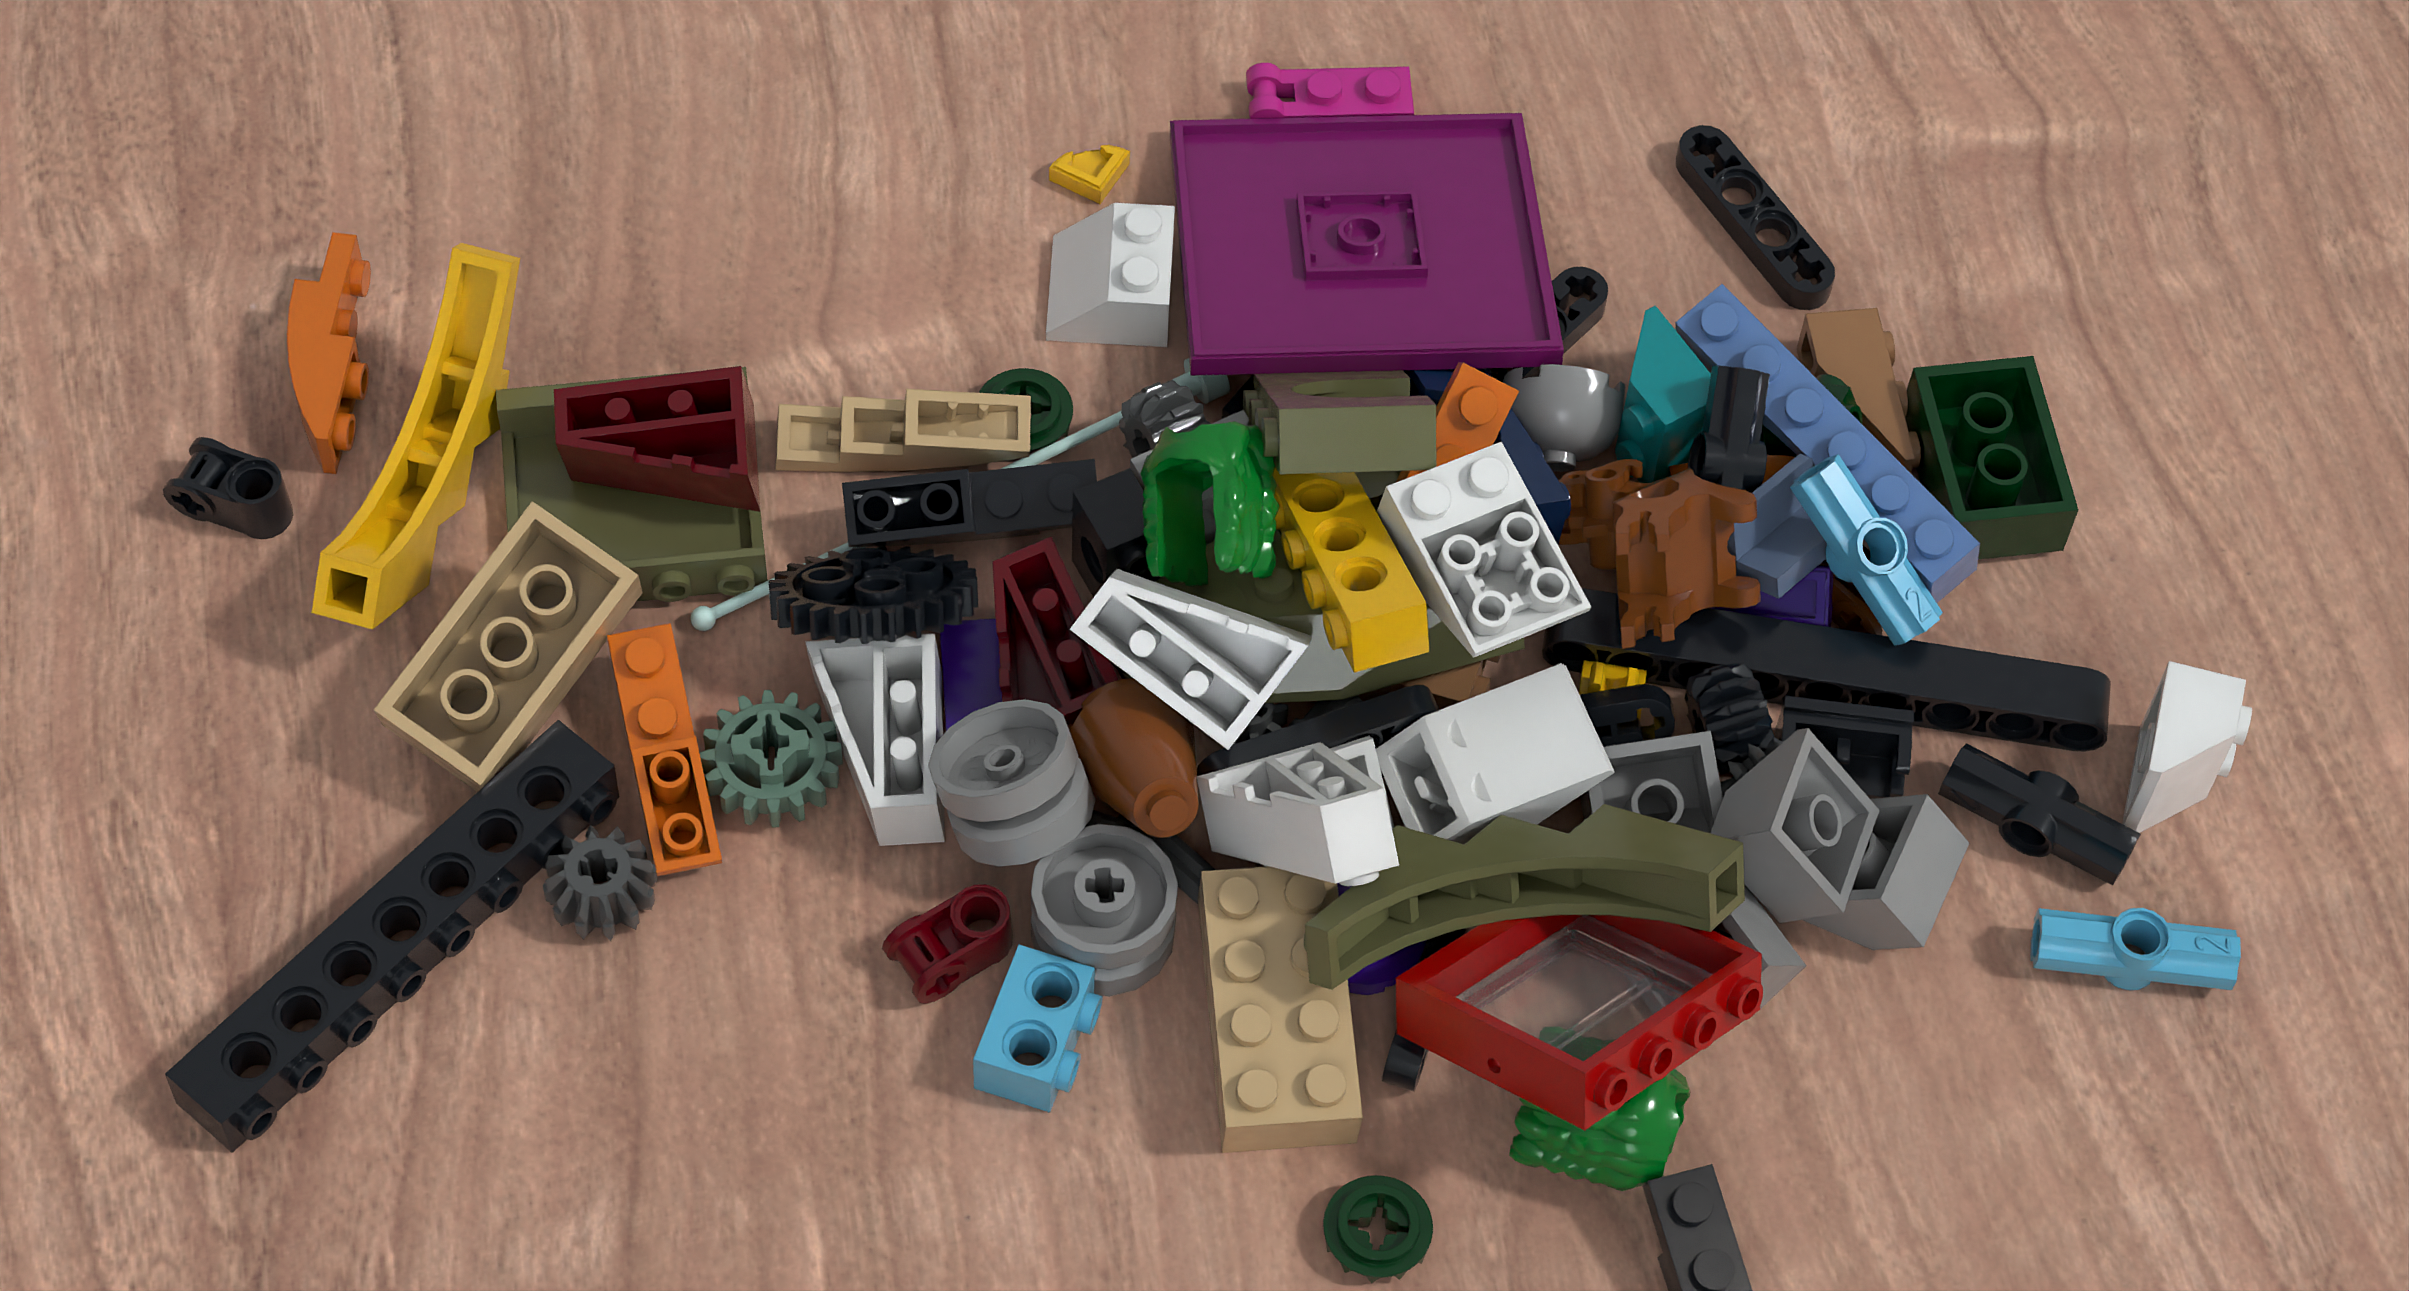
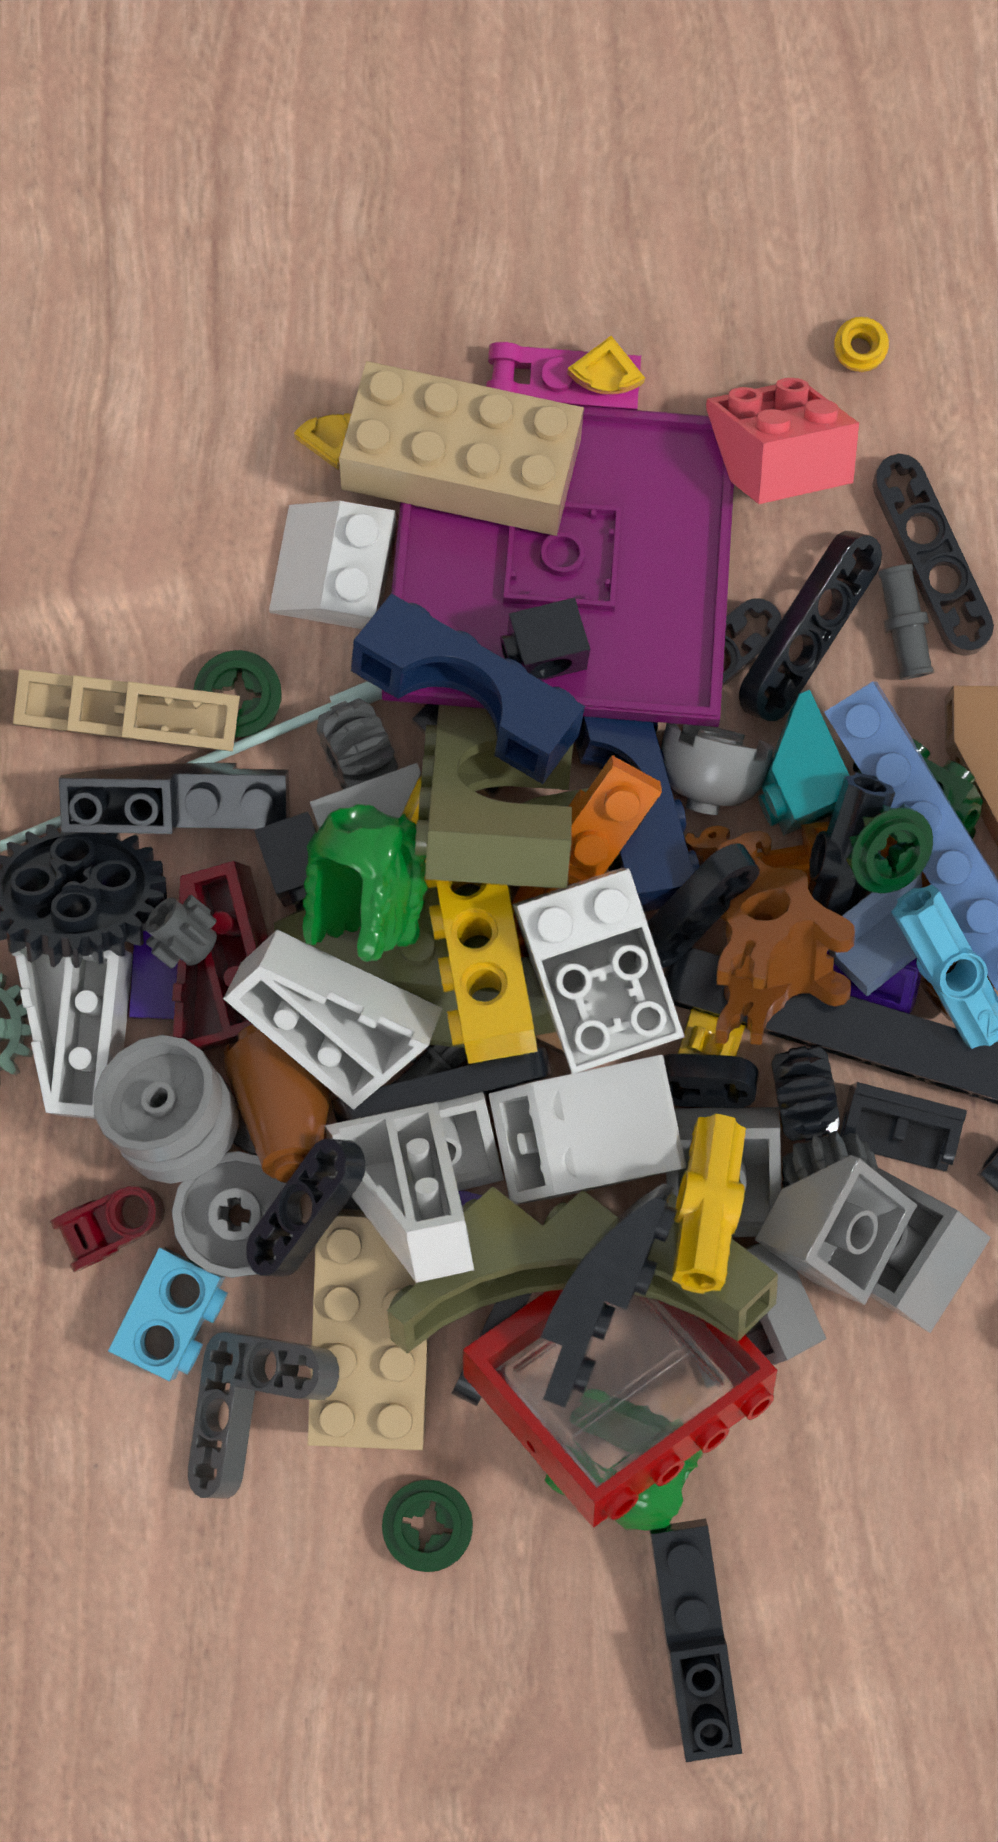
camera: 10 degrees right, 25 degrees up
(1005, 597) = (181, 931): none -> dark grey gear
(1119, 1081) = (245, 1377): none -> dark grey beam
(1186, 816) = (327, 1201): none -> black beam
(1225, 306) = (412, 651): none -> dark blue arch
(1237, 143) = (461, 448): none -> tan brick
(1363, 292) = (547, 639): none -> black brick
(1377, 73) = (606, 370): none -> yellow tile
(1550, 852) = (608, 1273): none -> black slope
(1577, 115) = (783, 440): none -> coral slope
(1606, 476) = (701, 901): none -> black beam
(1631, 278) = (816, 630): none -> black beam
(1638, 38) = (865, 329): none -> yellow plate
(1650, 786) = (709, 1204): none -> yellow piece
(1738, 270) = (906, 622): none -> dark grey pin
(1792, 444) = (905, 858): none -> dark green gear

